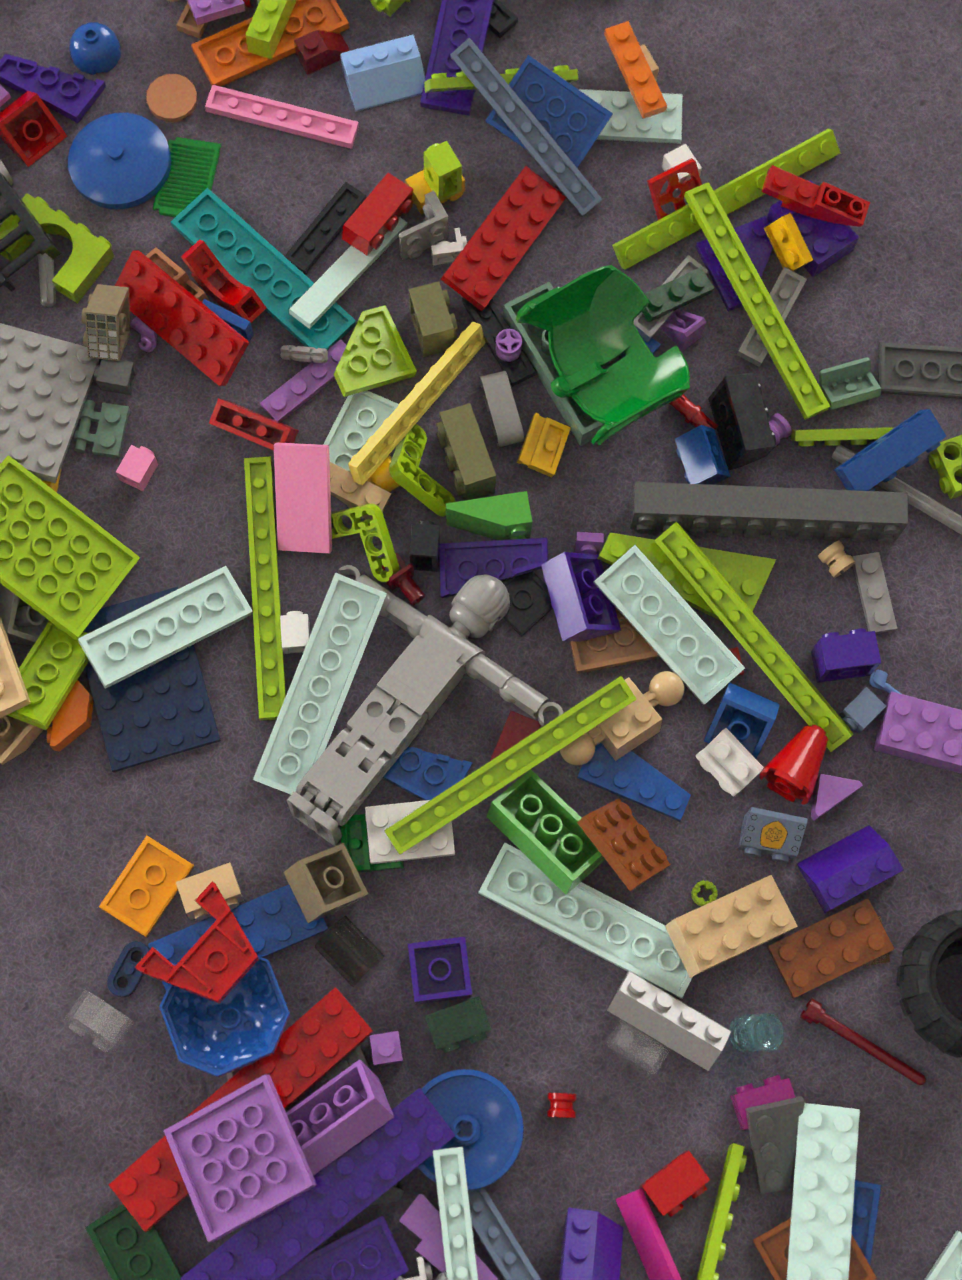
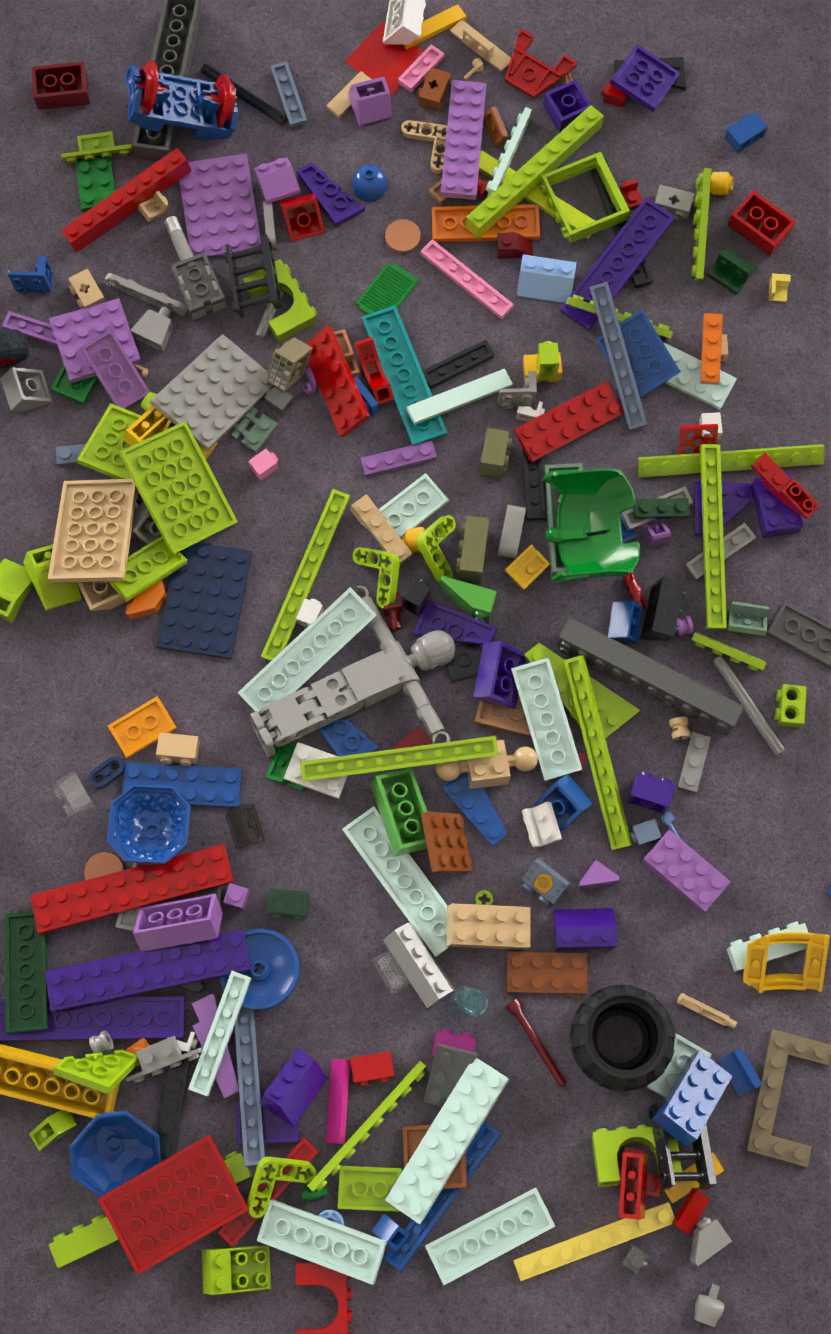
camera: 30 degrees right, 0 degrees up
(119, 160) = (349, 263): blue dish -> none
(165, 627) = (231, 572): light aqua plate -> none
(185, 1096) = (101, 865): none -> nougat tile
(214, 961) = (159, 790): red wing -> none
(239, 1158) = (113, 916): medium lavender plate -> none
(251, 425) = (348, 471): red brick -> none
(303, 497) = (355, 530): bright pink tile -> none
(304, 354) = (403, 439): light grey axle -> none
(325, 883) = (249, 777): dark tan brick -> none
(373, 355) = (447, 459): lime plate -> none
(378, 214) = (494, 370): red brick -> none
(416, 403) = (457, 503): light yellow plate -> none
(440, 970) = (293, 865): dark purple brick -> none
(508, 338) = (535, 488): medium lavender wheel -> none
(561, 1105) = (326, 985): red wheel -> none
(589, 543) = (523, 643): medium lavender plate -> none
(788, 243) = (754, 508): yellow plate -> none
(797, 765) = (583, 847): red cone -> none
(891, 452) = (749, 676): blue brick -> none

